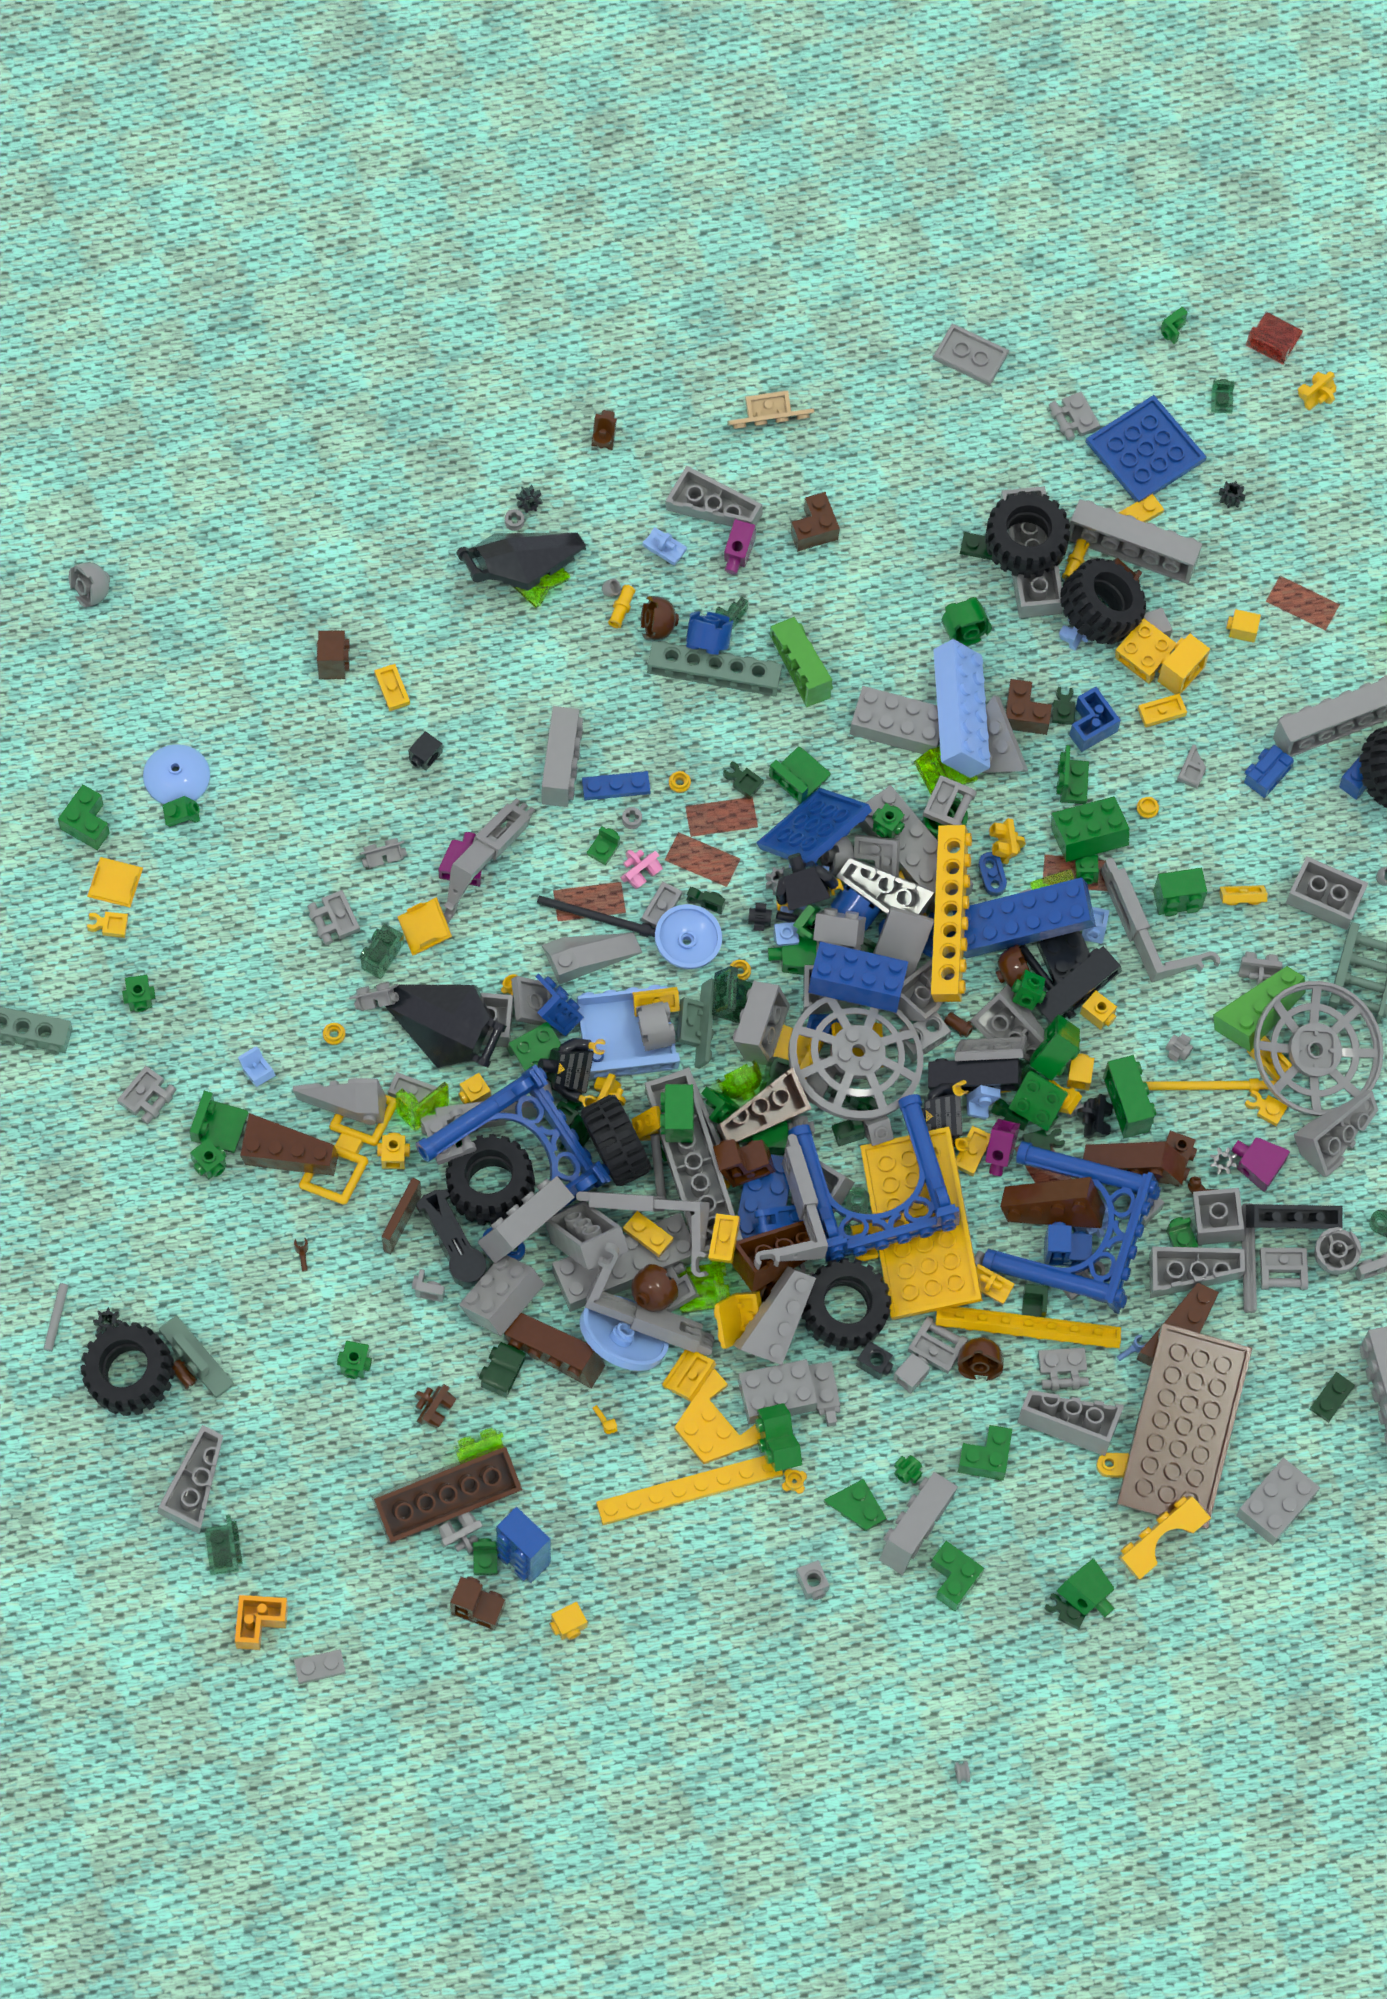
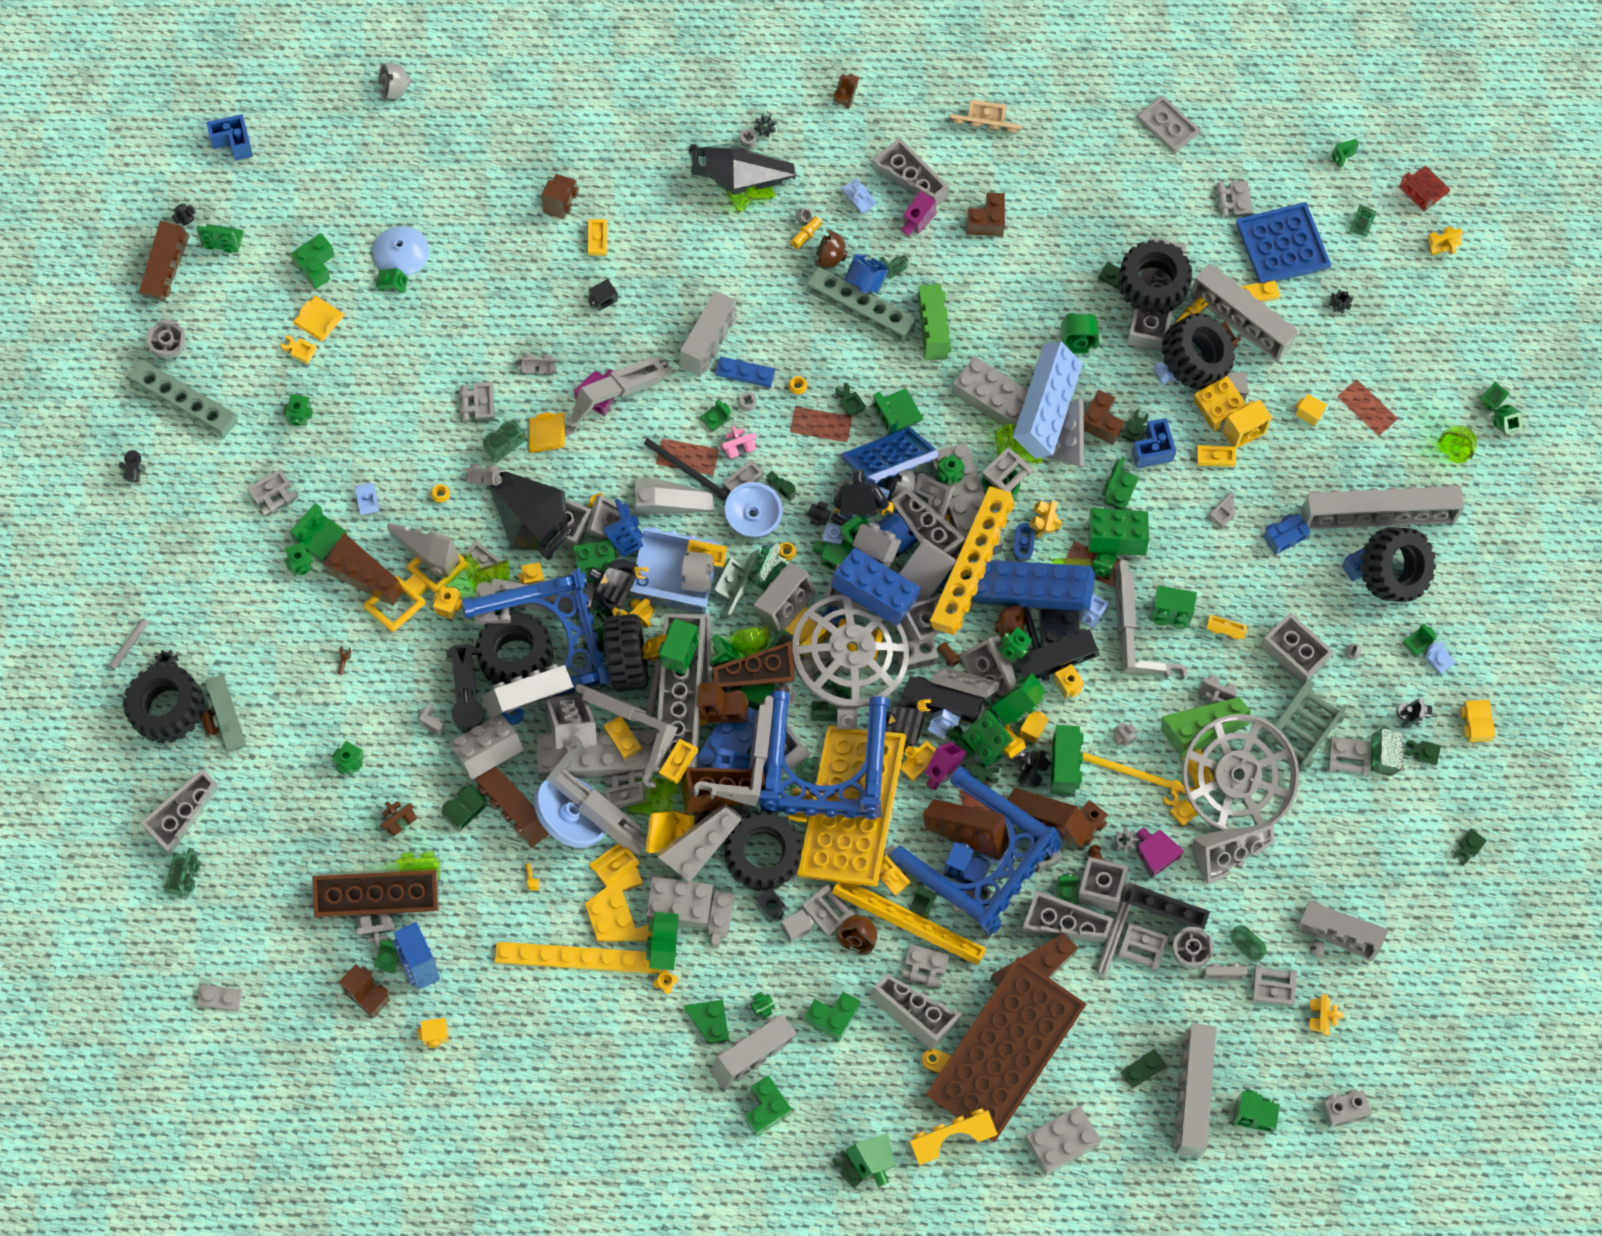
camera: 20 degrees right, 0 degrees up
(256, 1613) = (181, 937): light orange brick -> none
(401, 1215) = (431, 656): reddish brown tile -> none
(653, 1288) = (607, 783): reddish brown cylinder -> none
(702, 859) = (792, 453): clear red piece -> none
(808, 1571) = (647, 1060): light grey brick -> none
(1134, 1348) = (992, 969): medium blue hand -> none
(1147, 807) = (1174, 530): yellow plate -> none

